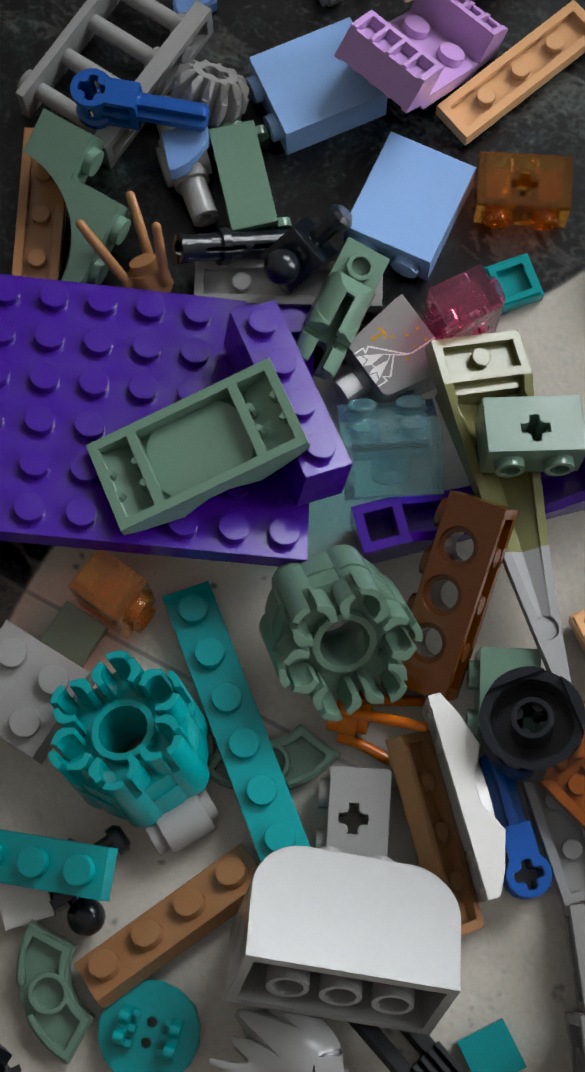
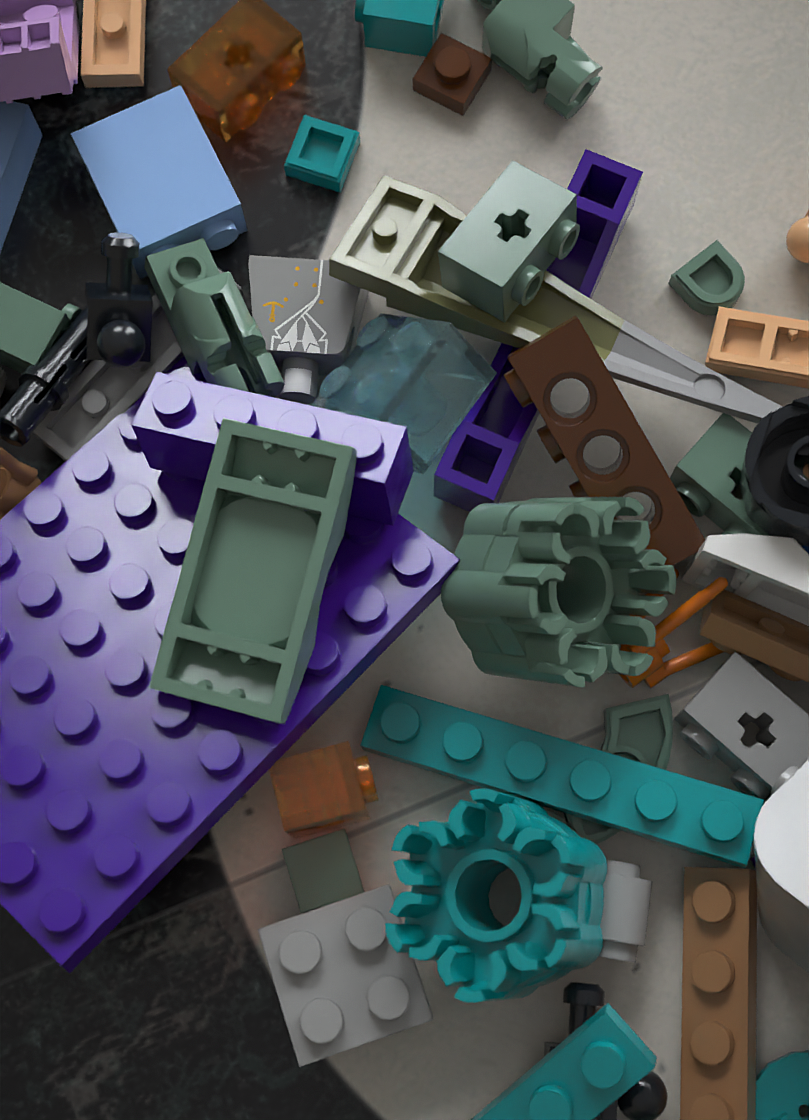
camera: 50 degrees left, 0 degrees up
(464, 305) = (317, 203): clear pink brick -> none

